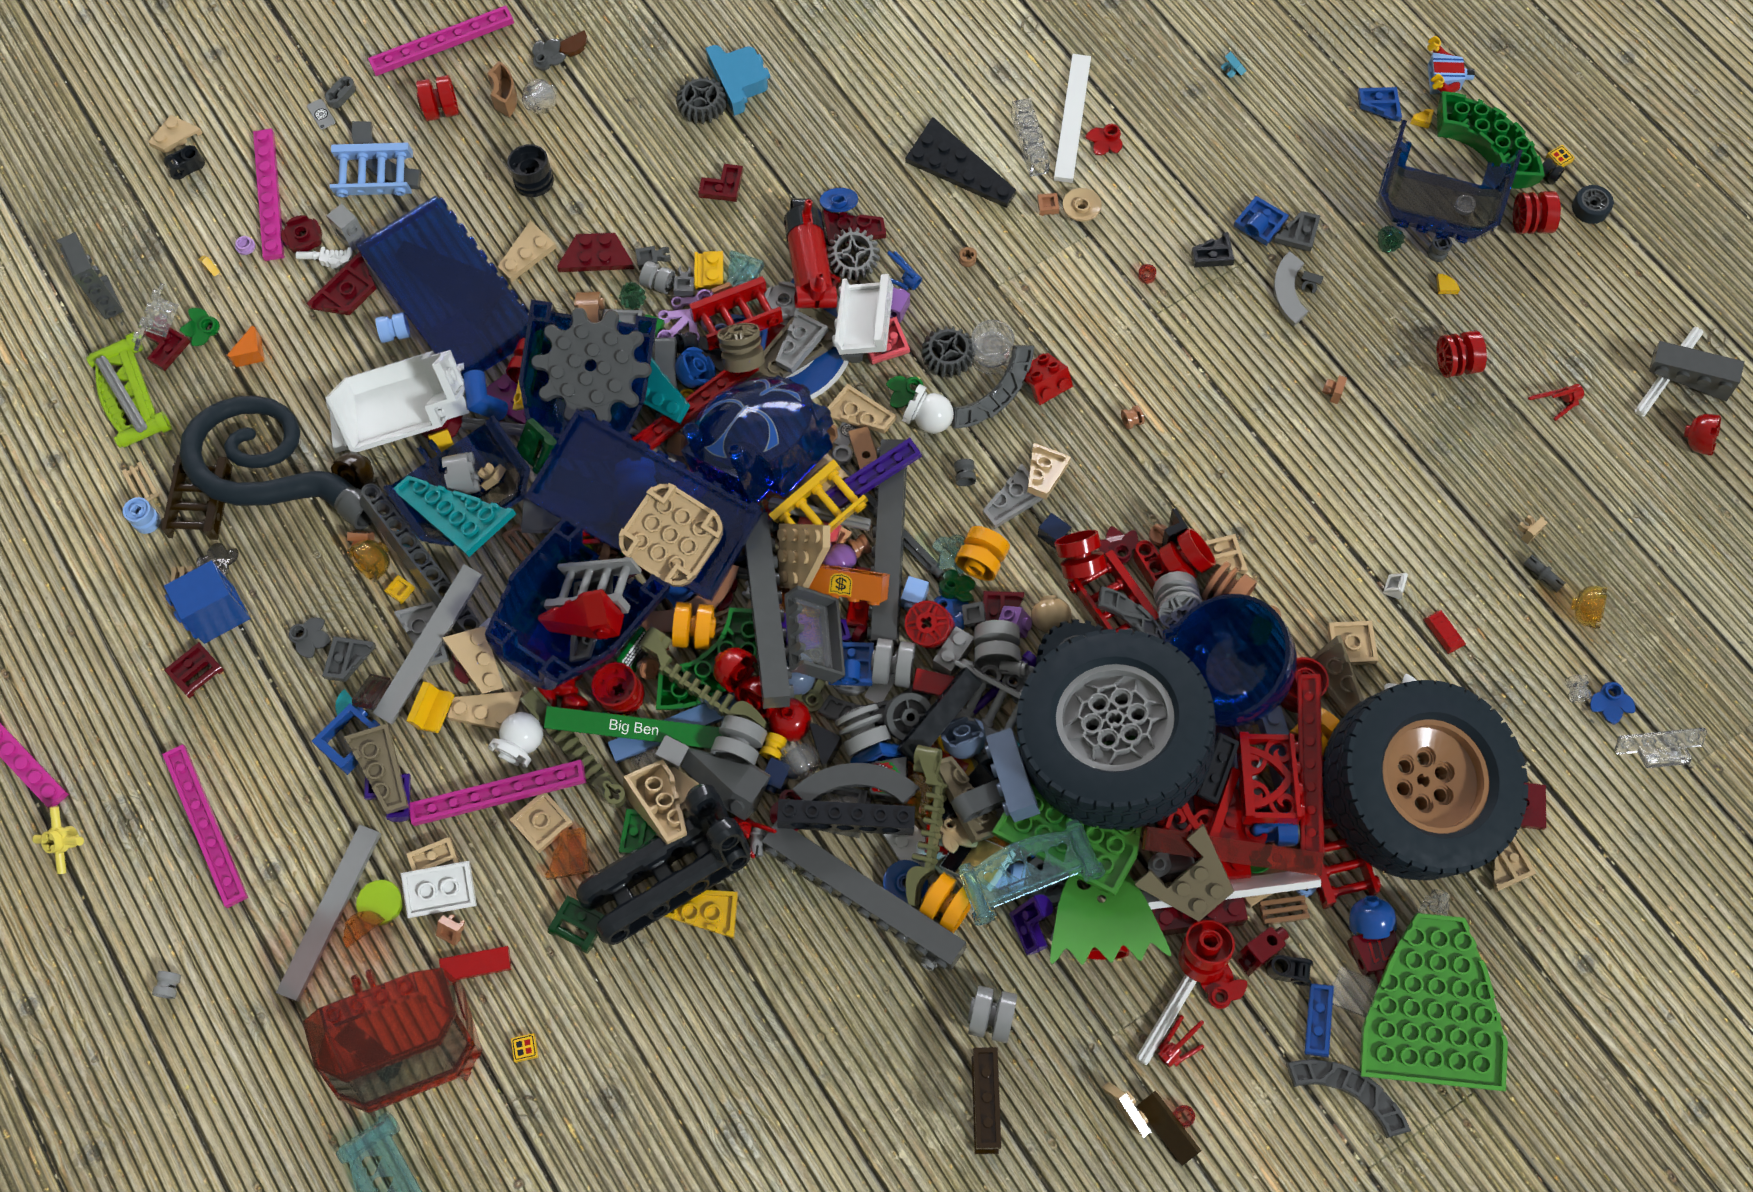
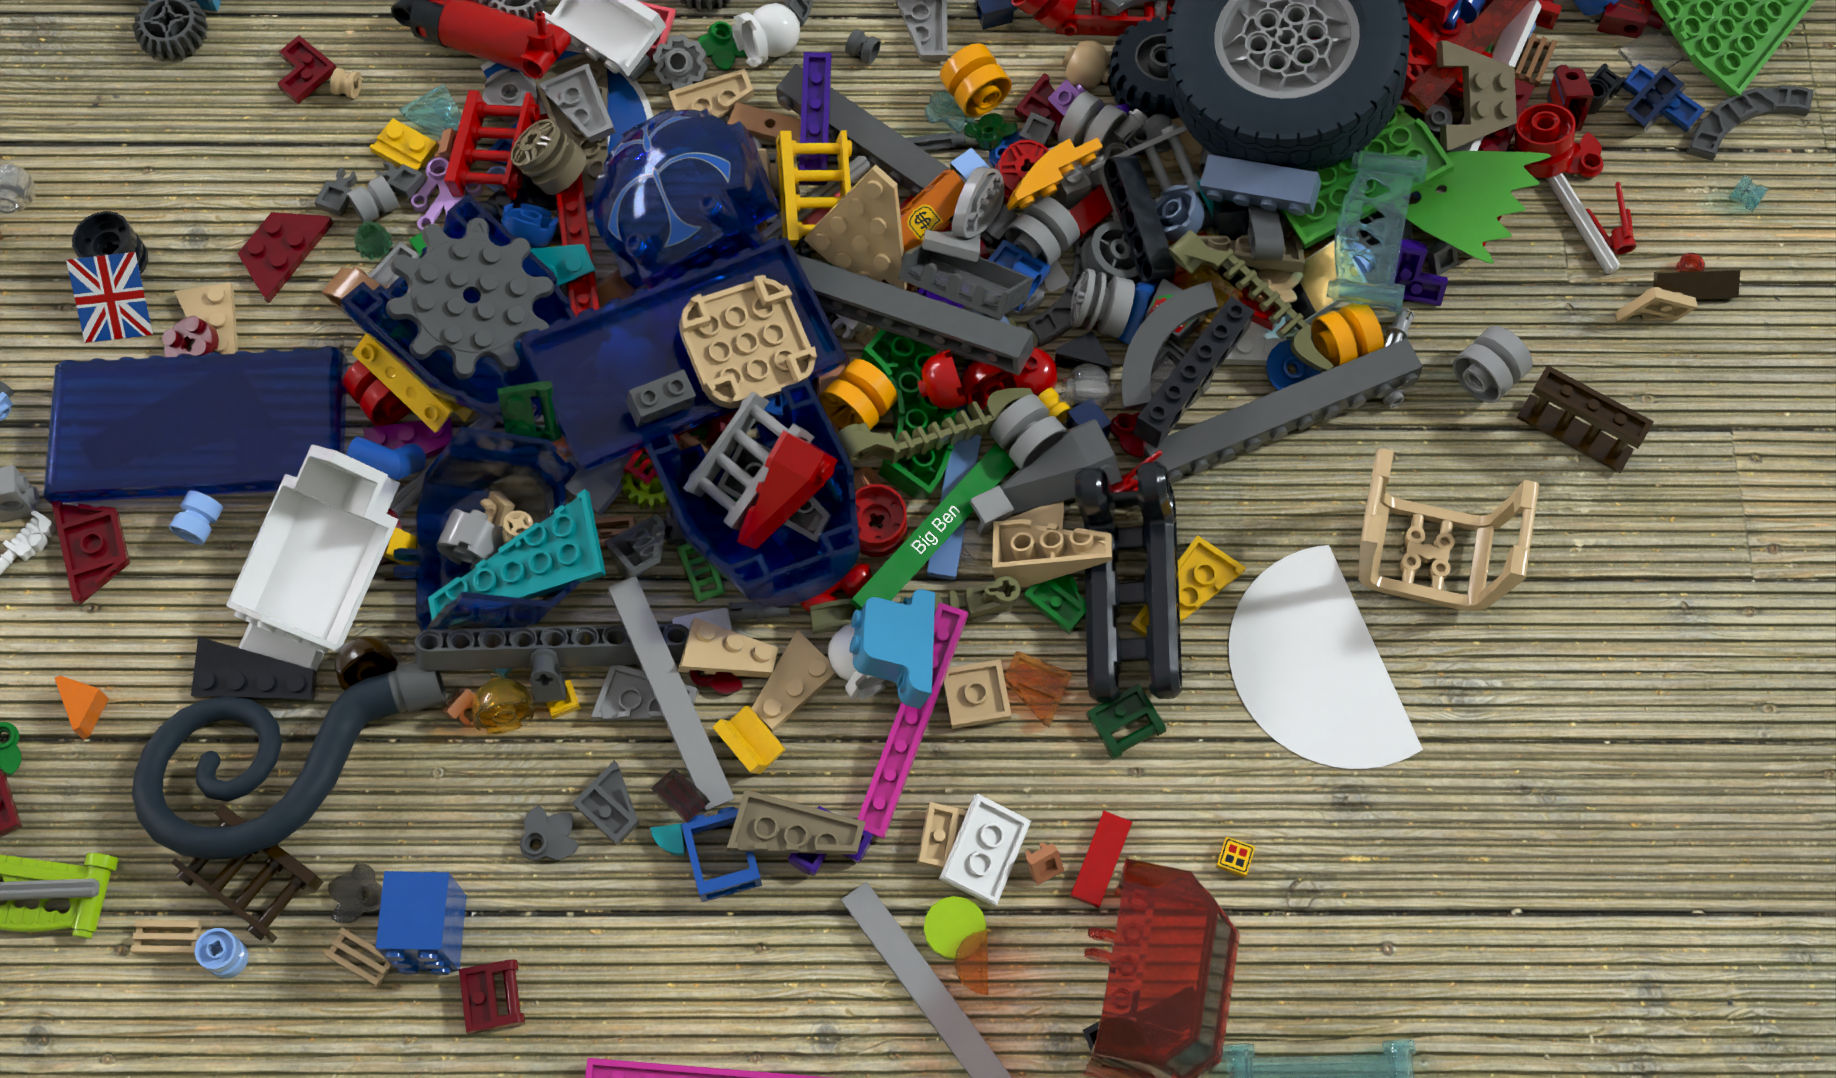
camera: 60 degrees left, 0 degrees up
(315, 419) = (243, 674): none -> black wing
(397, 571) = (546, 677): none -> dark grey piece
(478, 487) = (513, 522): none -> tan wheel
(497, 565) = (637, 547): none -> dark grey wedge
(499, 191) = (109, 297): none -> sticker
(501, 249) = (188, 330): none -> plate
(528, 748) = (897, 644): none -> dark azure brick
(594, 510) = (660, 398): none -> dark grey brick
(692, 1025) = (1314, 669): none -> white sticker
(728, 211) = (345, 83): none -> tan wheel
(835, 1093) = (1478, 597): none -> tan windscreen
(836, 613) = (952, 245): none -> light grey tile
(872, 376) = (680, 62): none -> light grey plant
(879, 599) = (978, 202): none -> light grey piece
(920, 633) = (1050, 171): none -> light orange slope
(983, 937) = (1399, 327): none -> light grey axle
(1277, 1127) = (1748, 193): none -> clear light blue wheel
(1302, 1012) = (1655, 98): none -> dark blue brick

